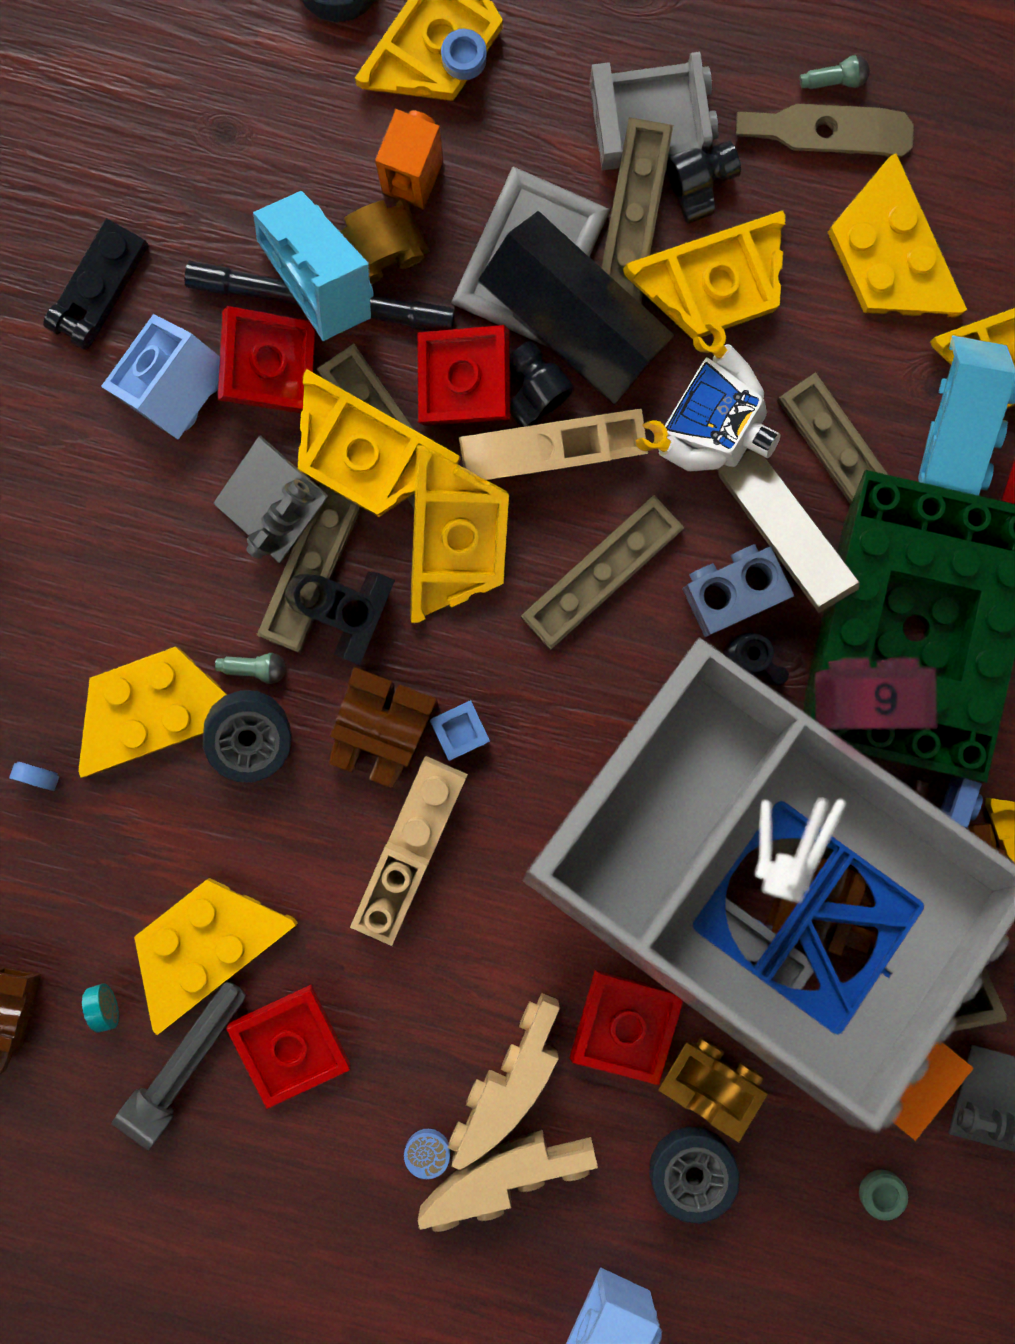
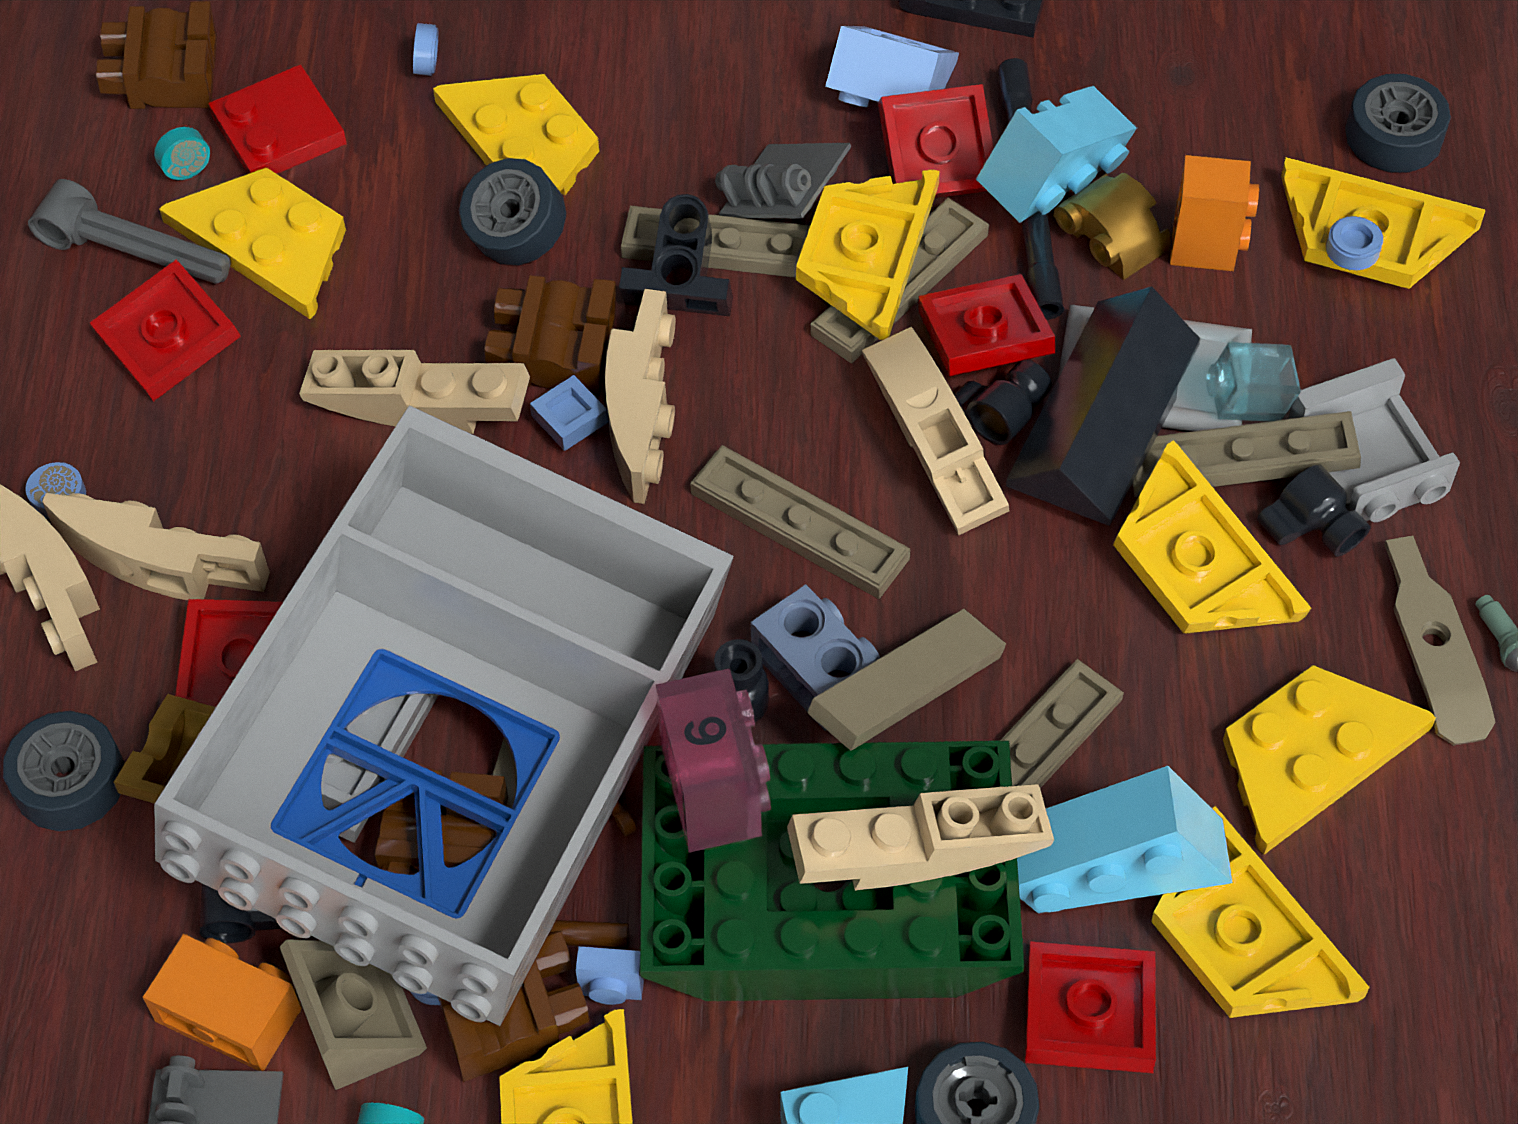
camera: 80 degrees right, 30 degrees down
(79, 919) = (277, 122): none -> red plate
(267, 668) = (595, 224): sand green piece -> none
(455, 534) = (797, 349): yellow wing -> none
(476, 679) = (638, 395): none -> tan slope
(583, 182) = (1253, 381): none -> clear light blue brick
(716, 414) = (1026, 579): torso -> none
(789, 875) = (460, 662): white plant -> none
(883, 1194) = (62, 1009): sand green tile -> none
(954, 558) = (920, 842): none -> tan slope

